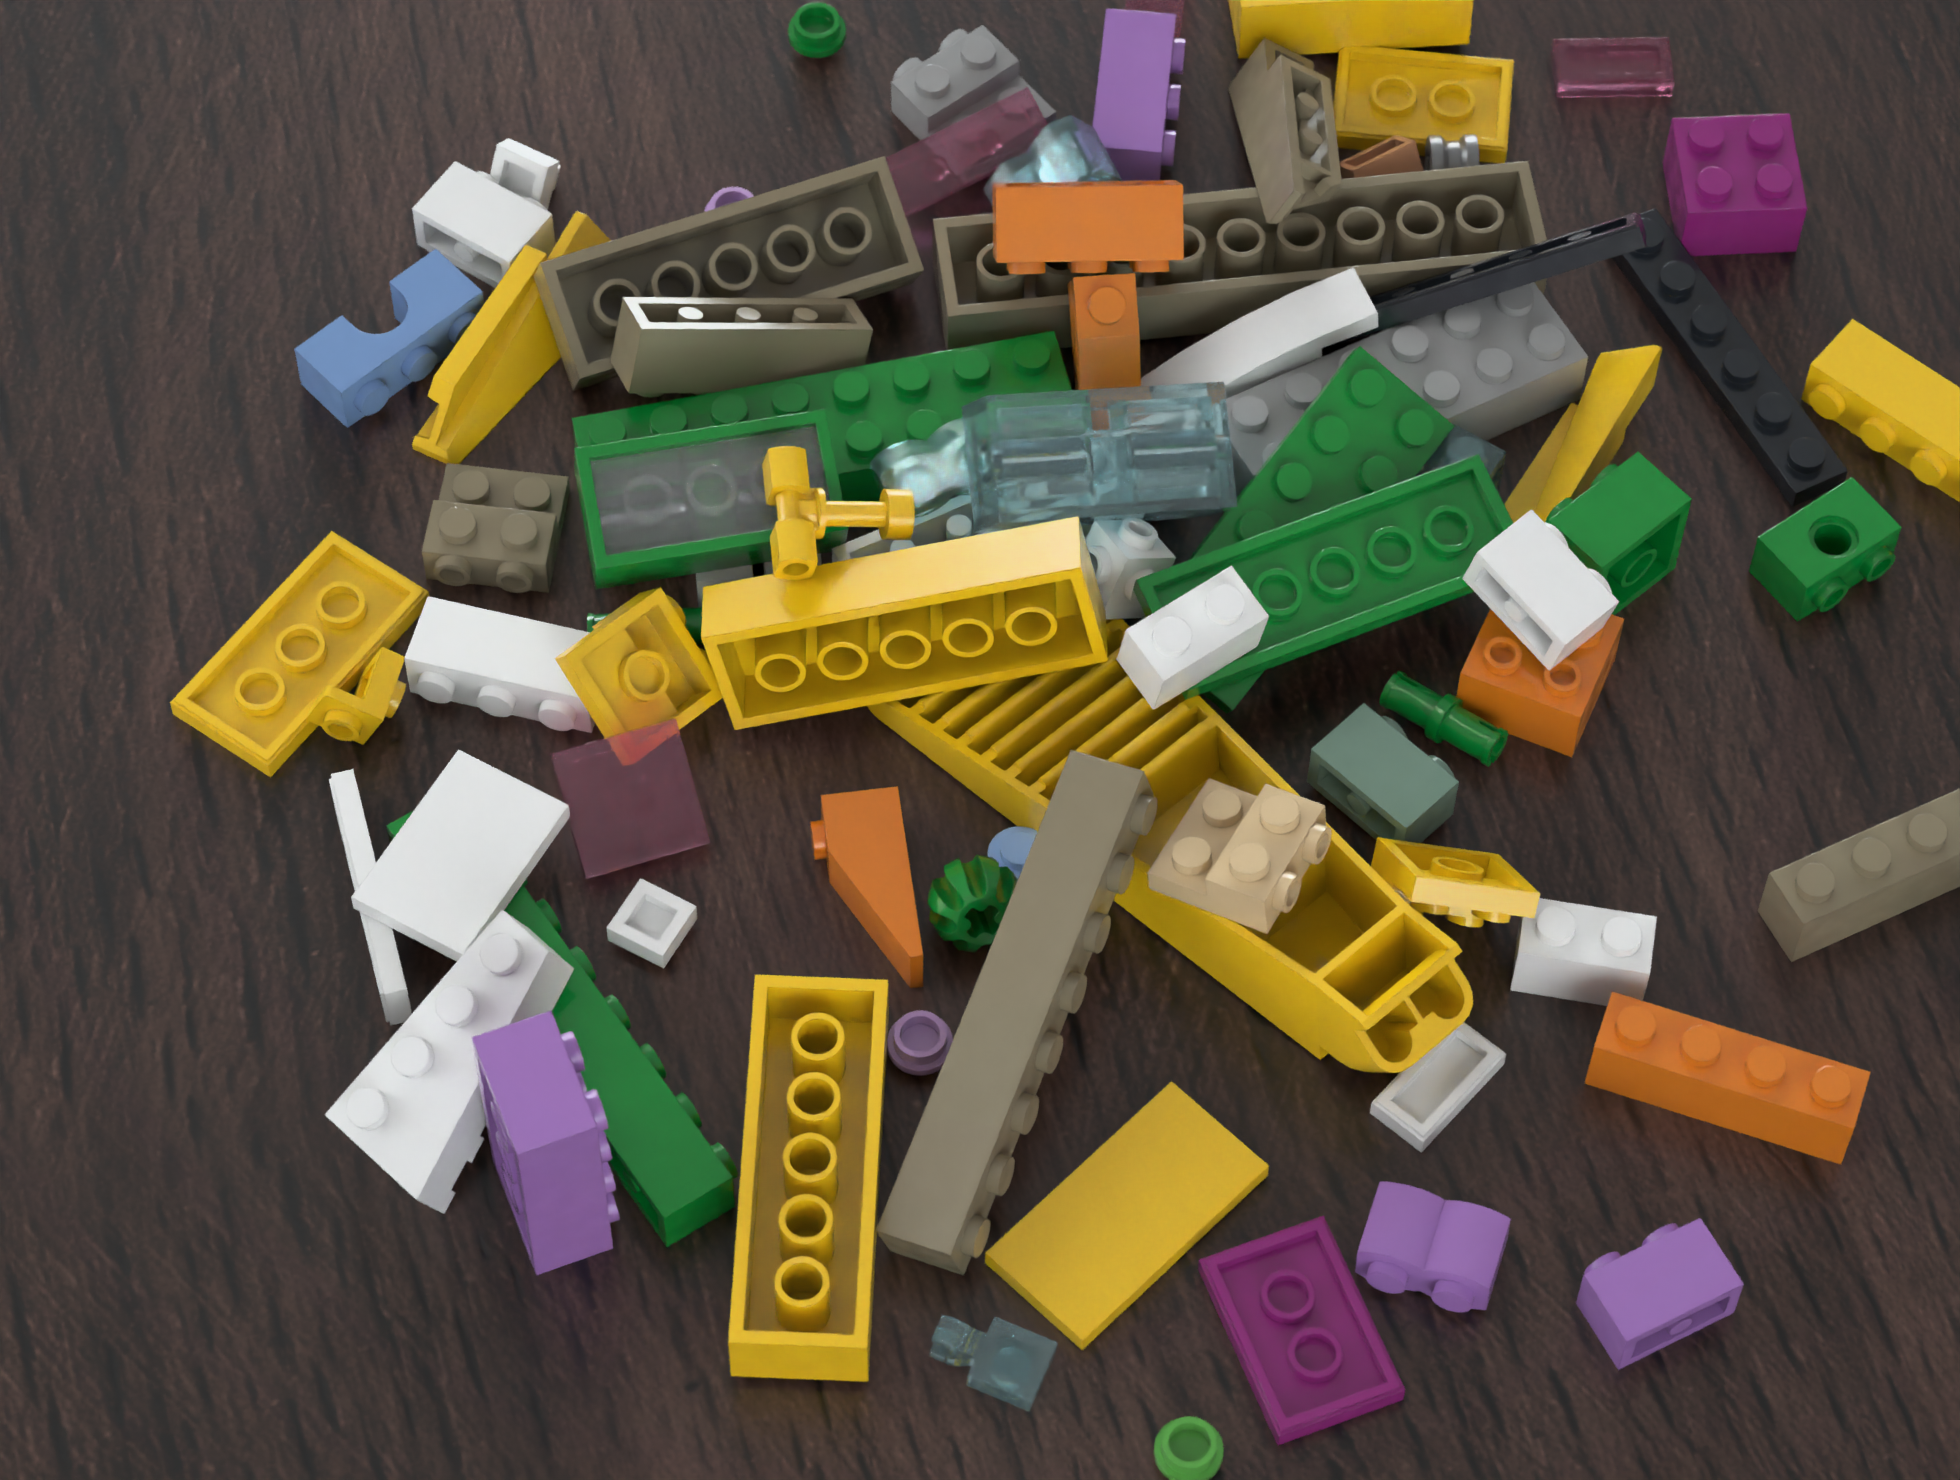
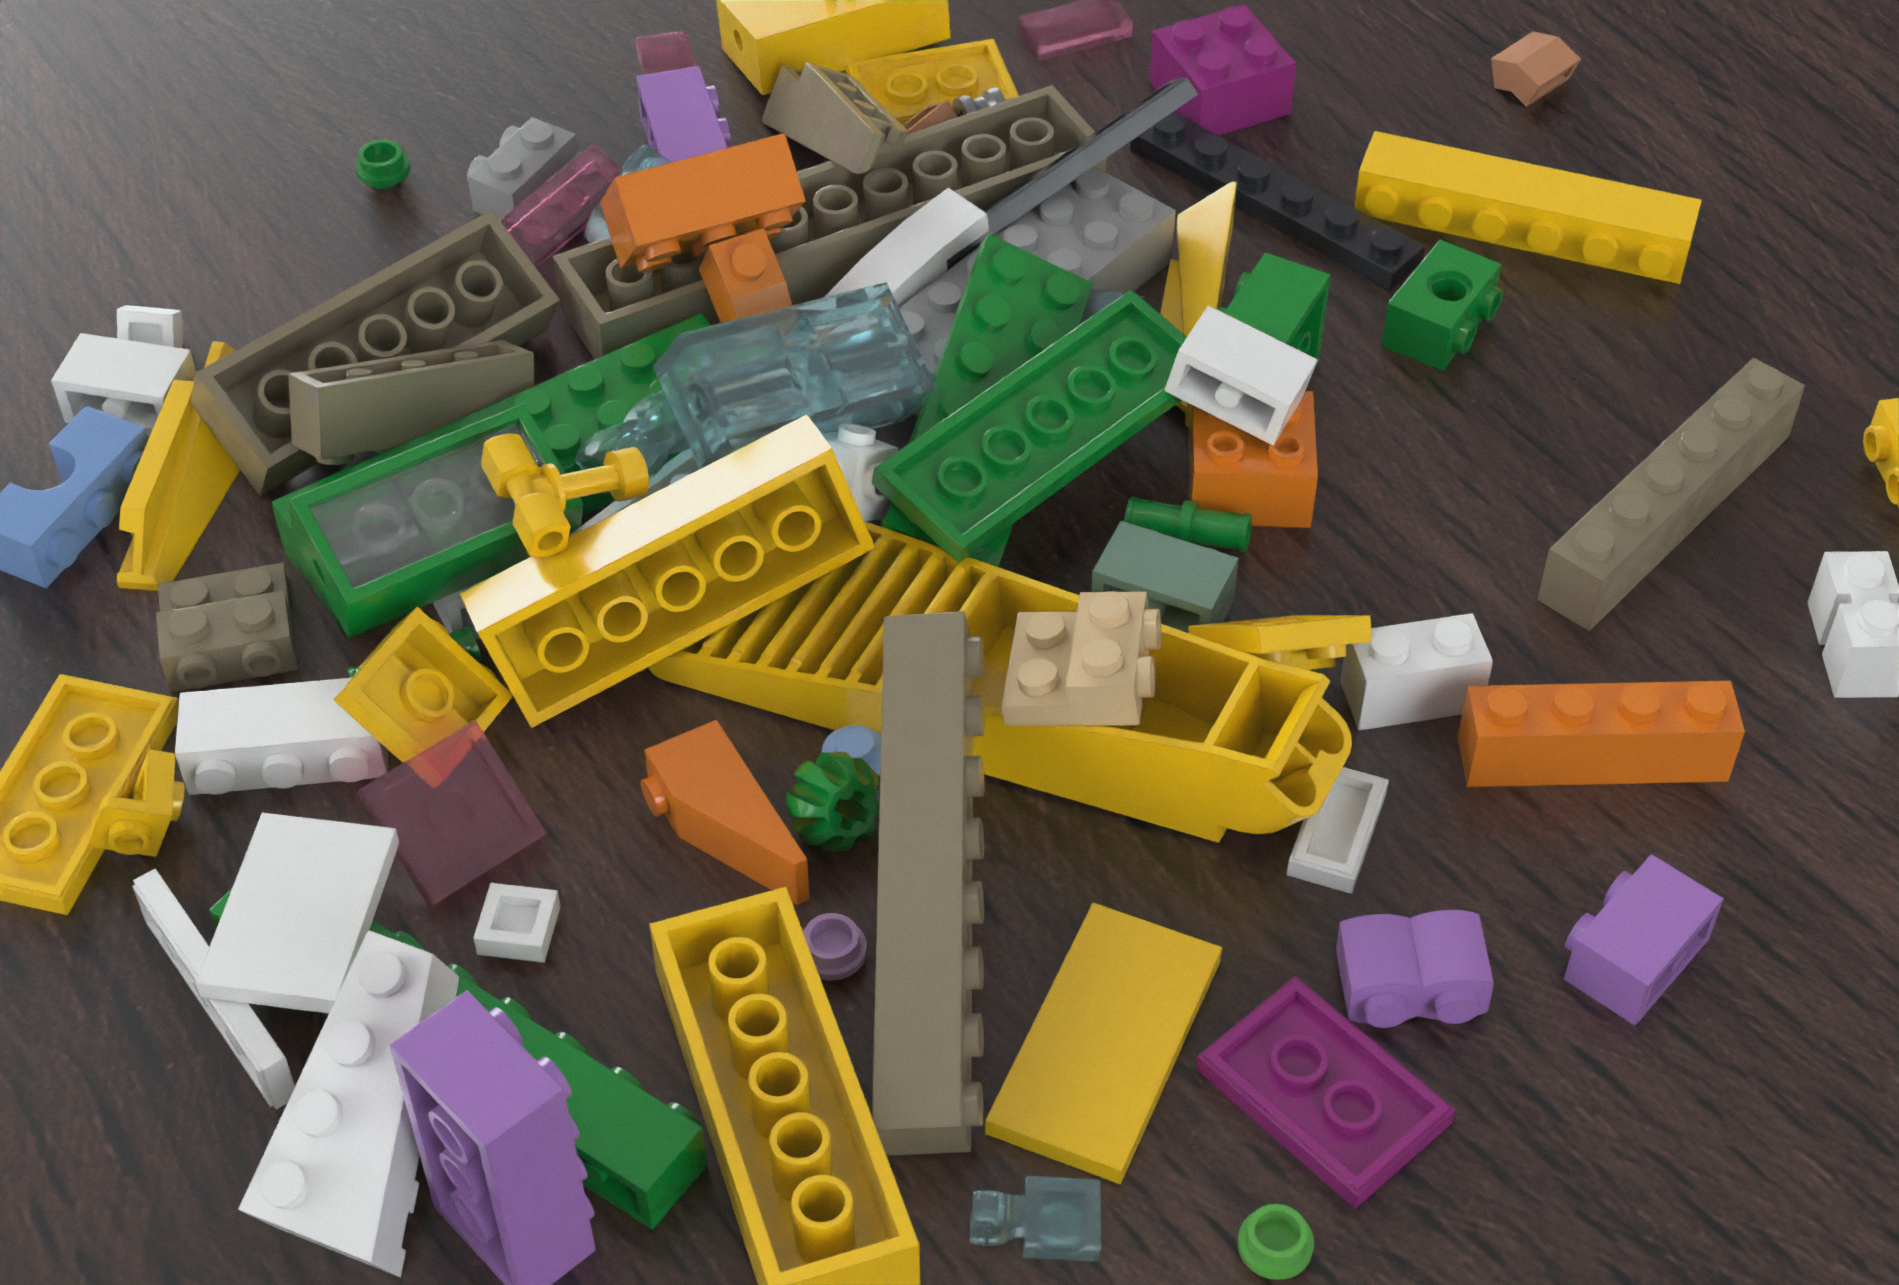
camera: 20 degrees left, 10 degrees down
(1192, 637) = (952, 494): white brick -> none

